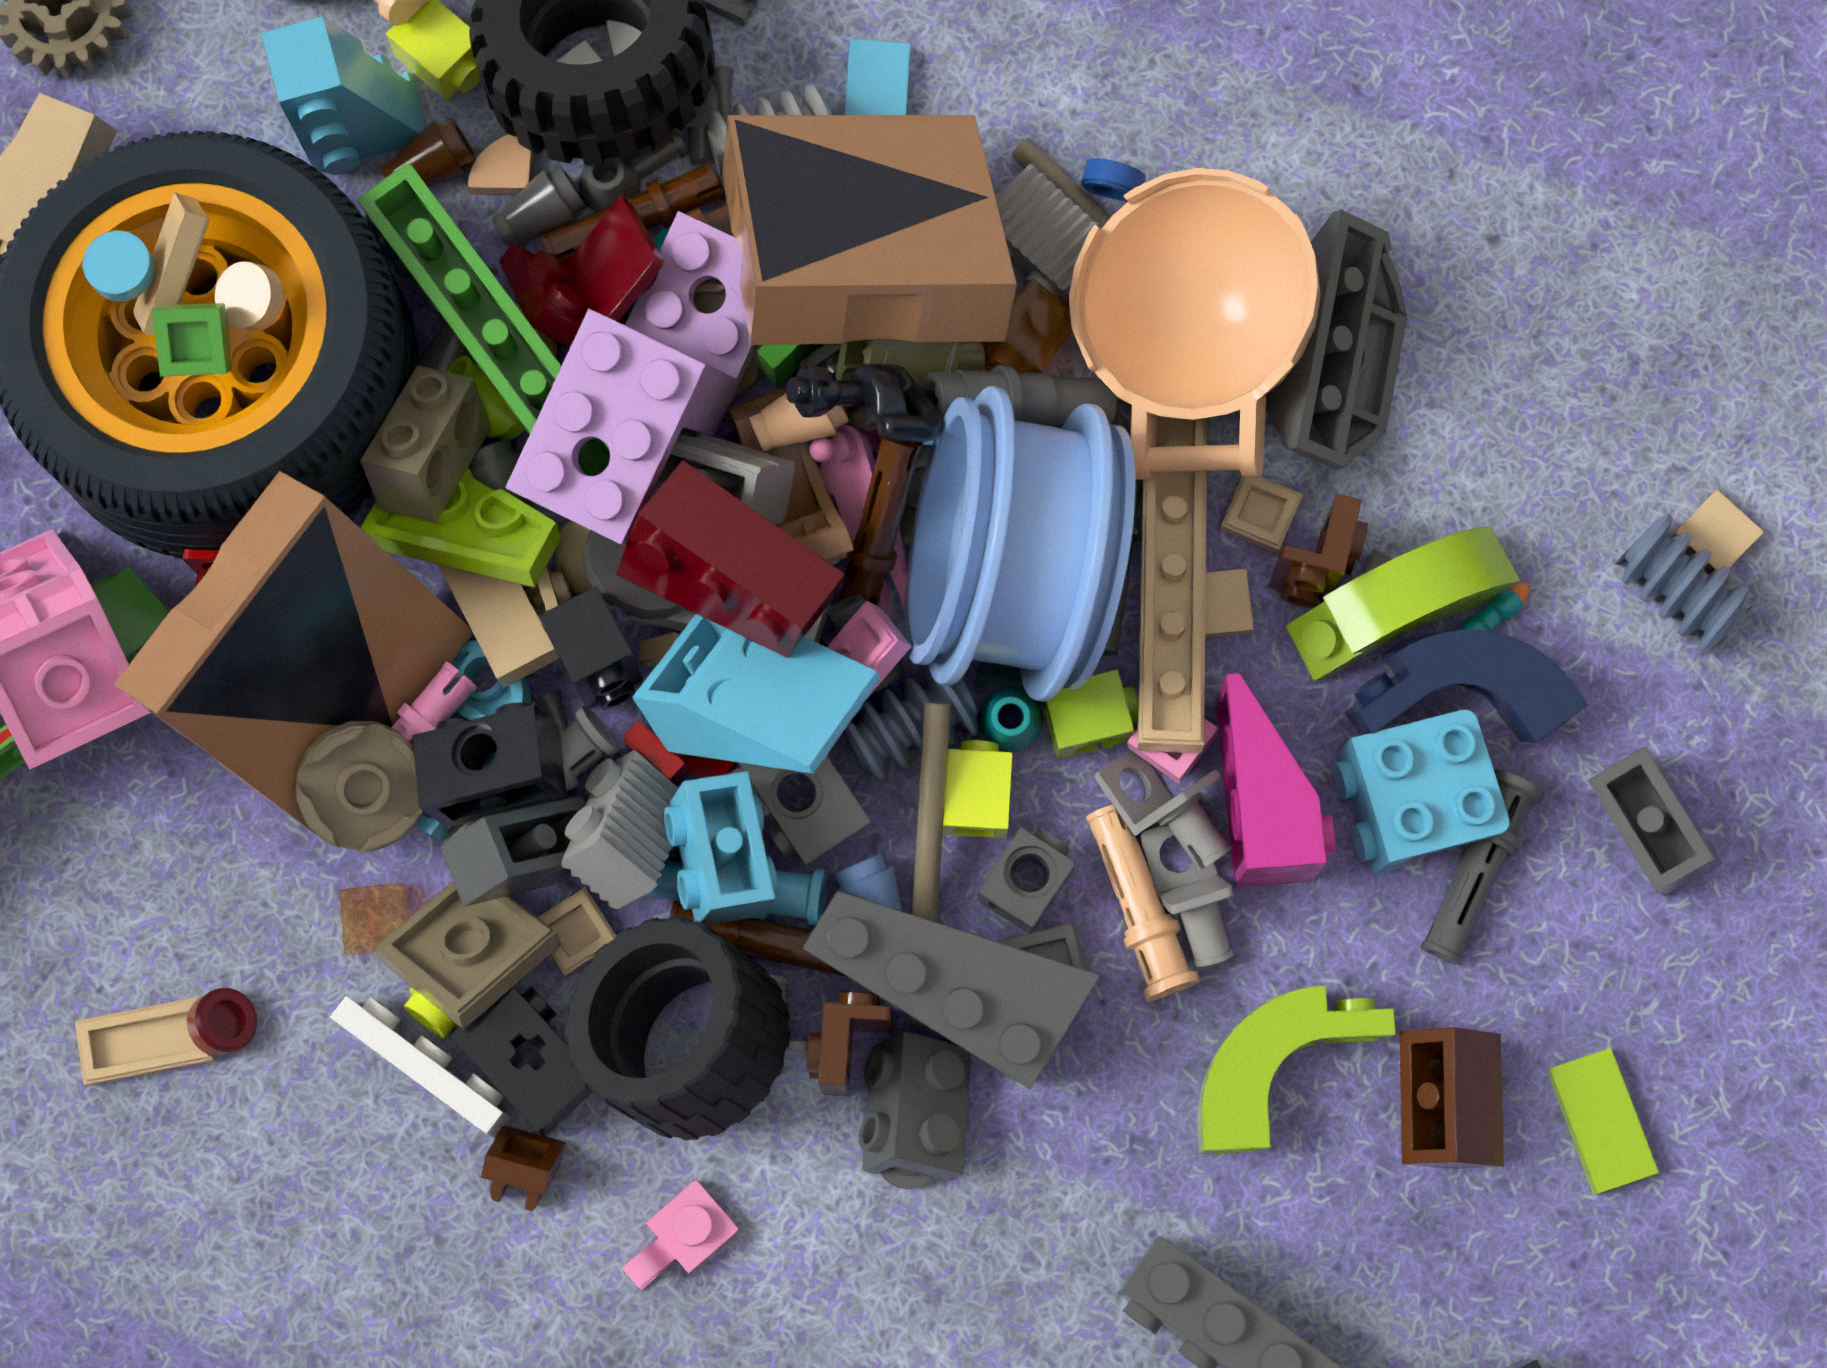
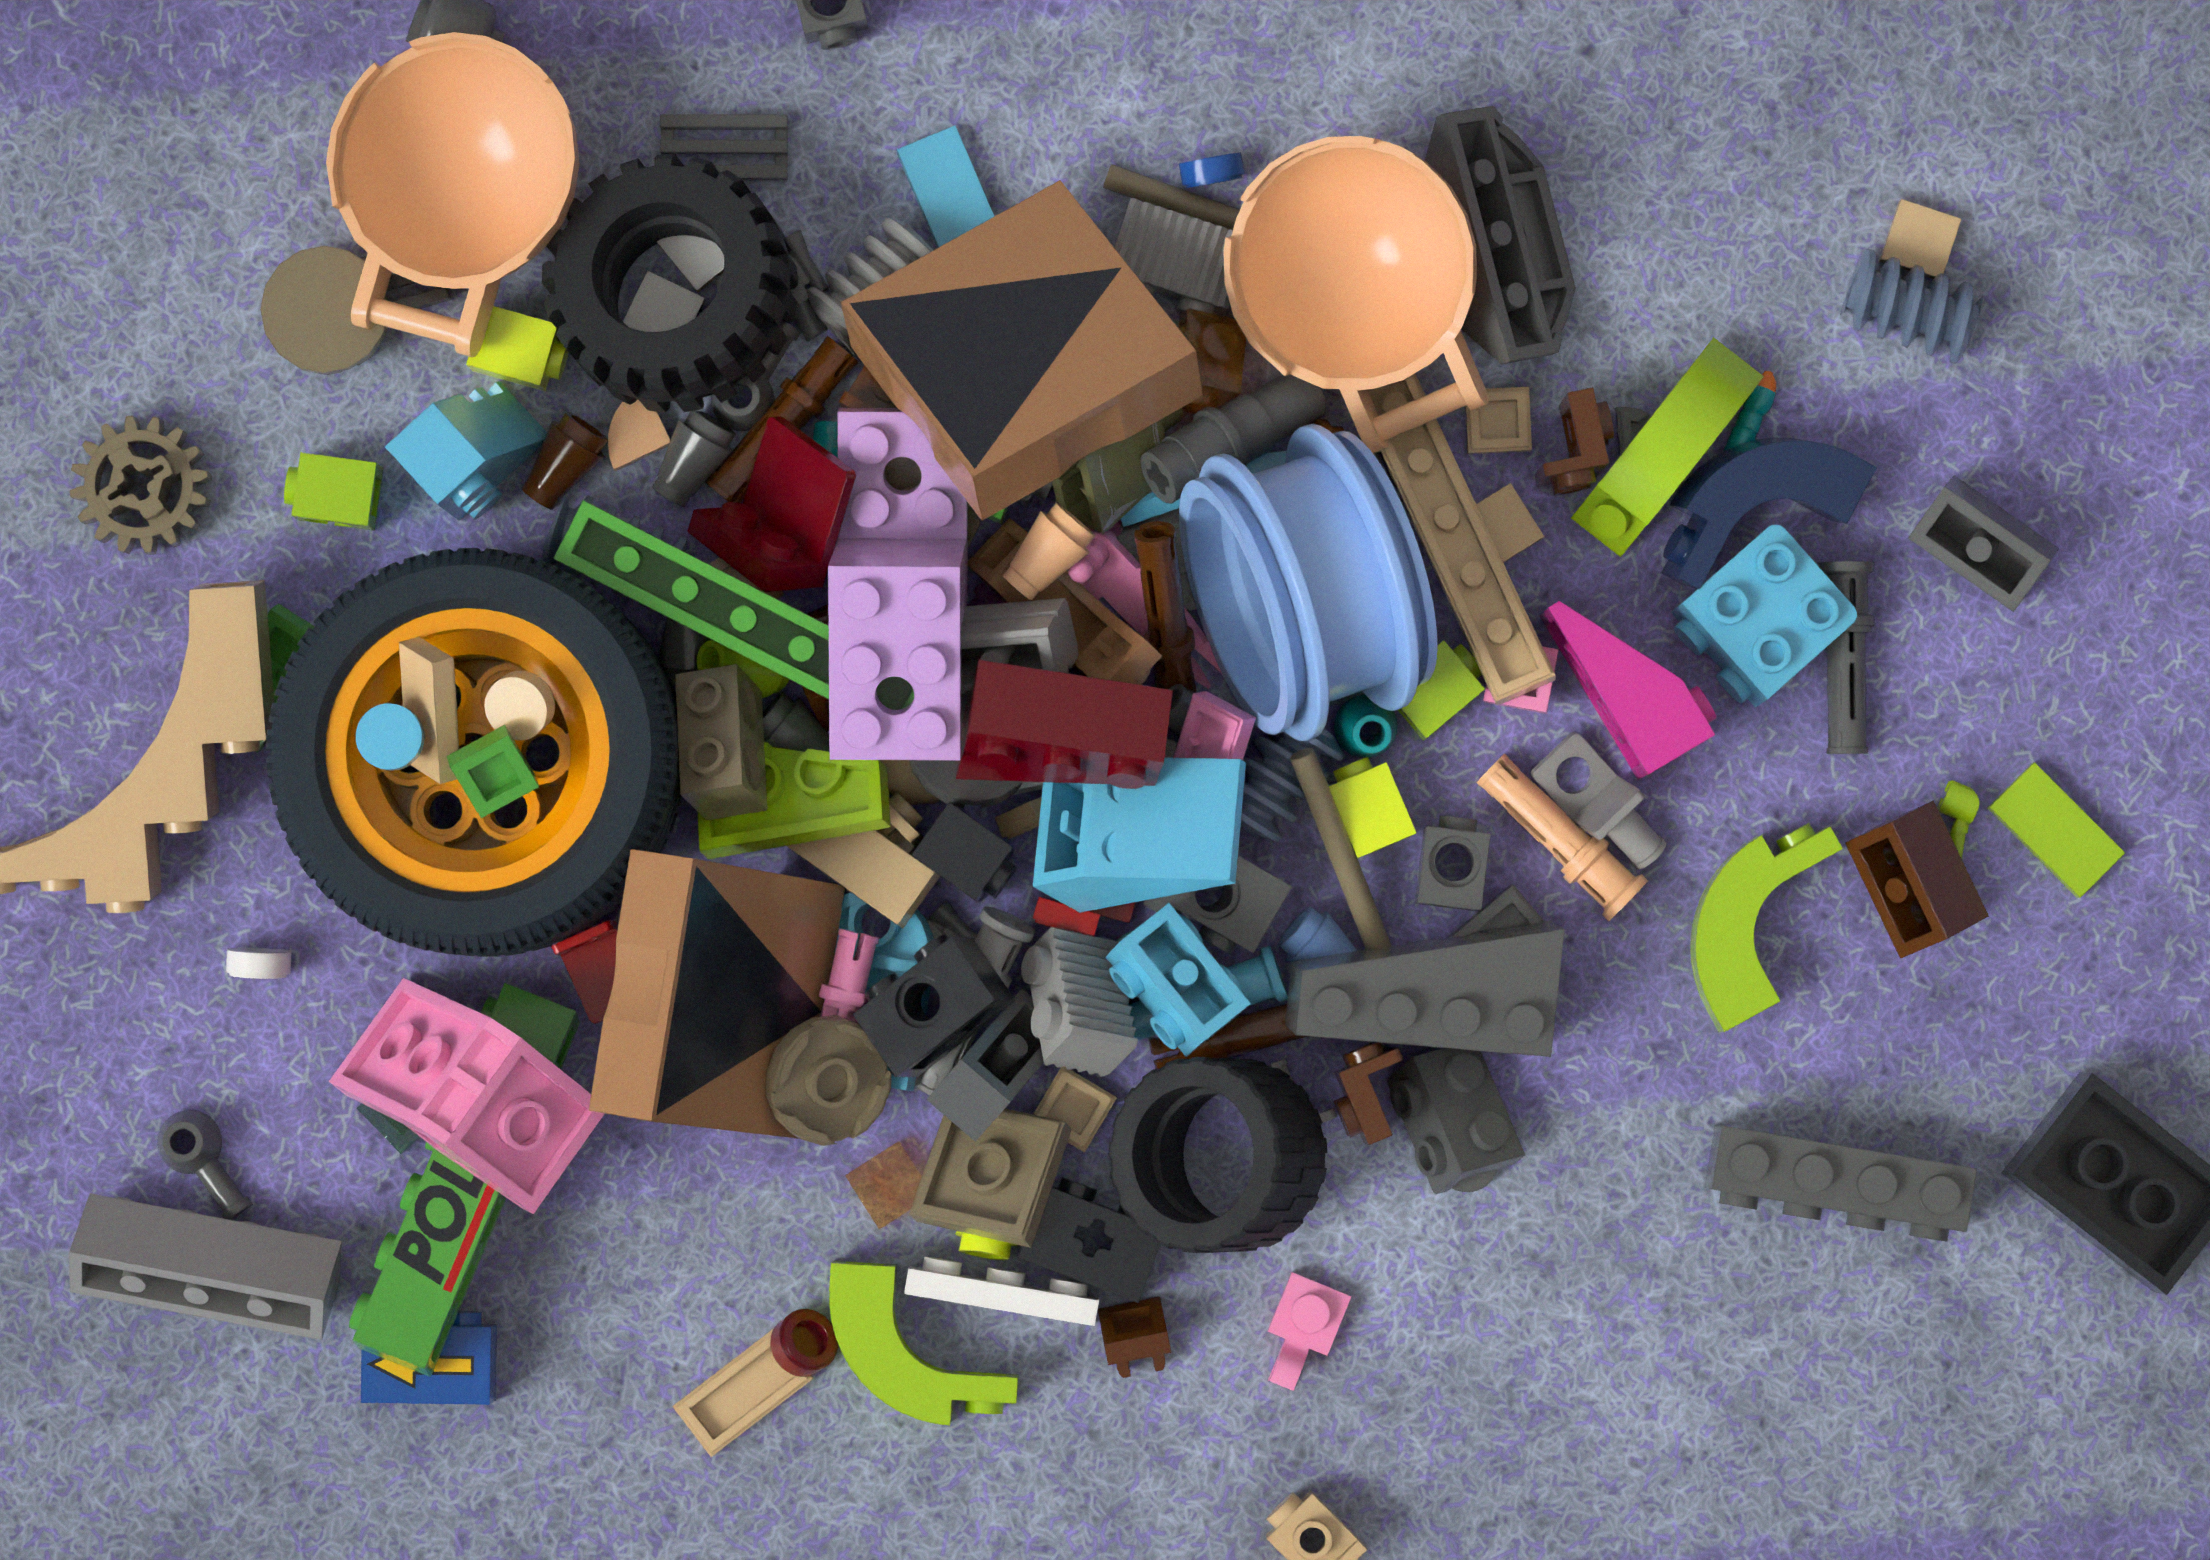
camera: 25 degrees left, 10 degrees up
(222, 90) = (334, 491): none -> lime brick
(282, 1075) = (878, 1355): none -> lime arch
(874, 398) = (1115, 508): black piece -> none
(1181, 814) = (1545, 742): light grey bracket -> none
(1524, 1054) = (1962, 805): none -> lime hand

